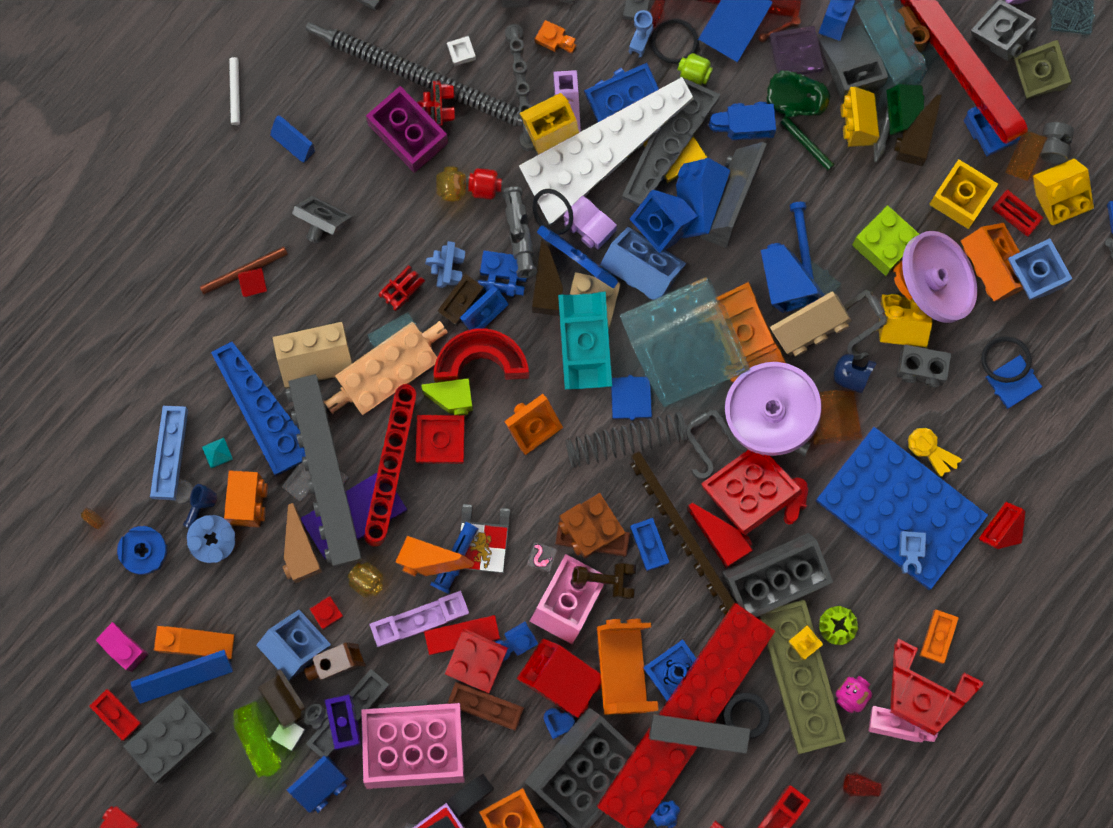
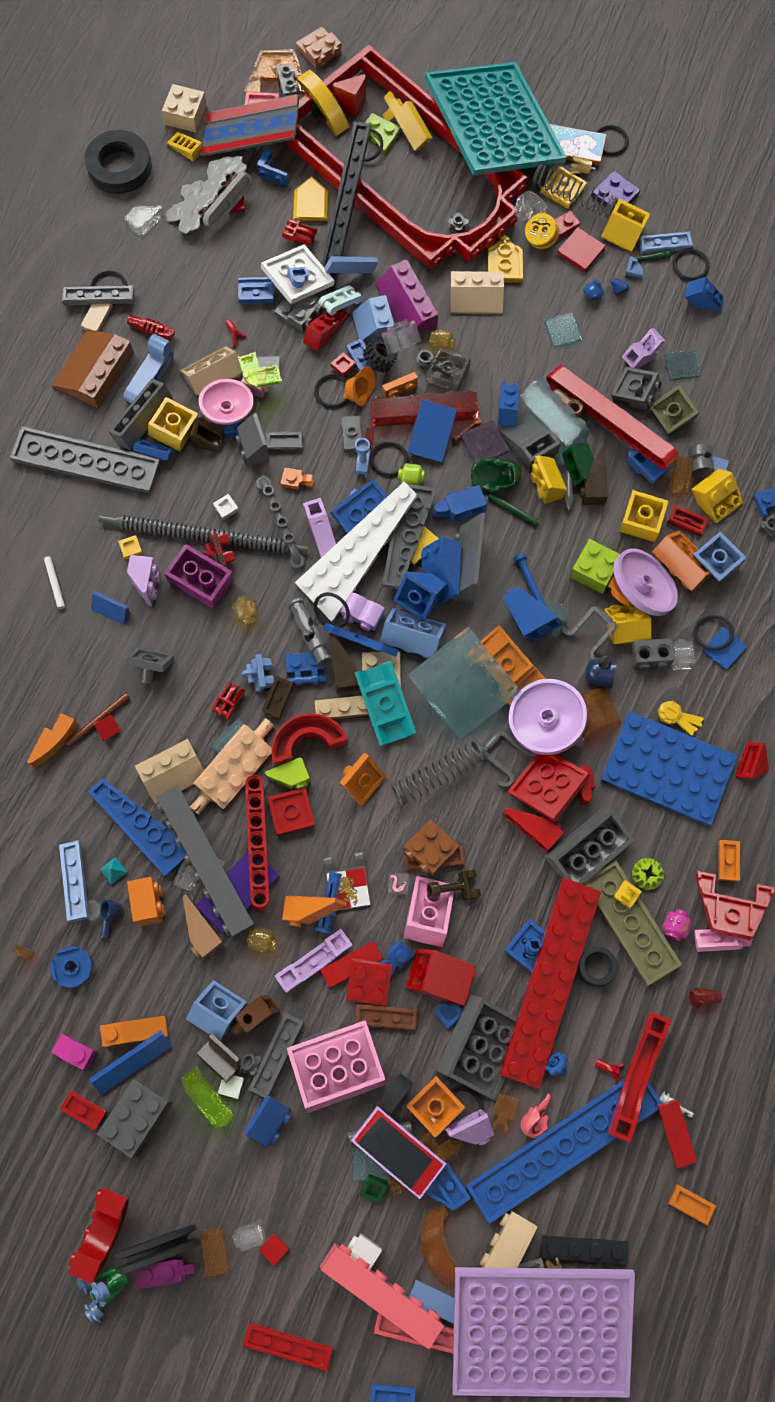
camera: 15 degrees left, 5 degrees down
(185, 281) = (52, 740): none -> orange slope
(197, 542) = (132, 951): medium blue plate -> none
(326, 612) = (236, 976): red plate -> none
(334, 71) = (130, 546): none -> yellow plate
(342, 112) = (144, 576): none -> lavender slope
(343, 722) = (274, 1063): dark purple brick -> none
(484, 183) = (272, 602): red head -> none
(484, 310) = (298, 700): blue plate -> none
(532, 331) = (342, 707): none -> tan plate
(550, 122) = (311, 542): yellow slope -> none
(623, 667) = (488, 954): orange panel -> none
(631, 398) = (433, 739): blue piece -> none
(649, 544) = (481, 850): blue plate -> none
(679, 528) = (501, 830): dark brown plate -> none
(699, 733) = (565, 990): dark grey tile -> none
(811, 324) = (558, 644): tan slope -> none
(912, 547) = (688, 796): medium blue plate -> none
(959, 376) = (683, 654): none -> clear brick
(1078, 152) = (720, 463): none -> medium blue tile

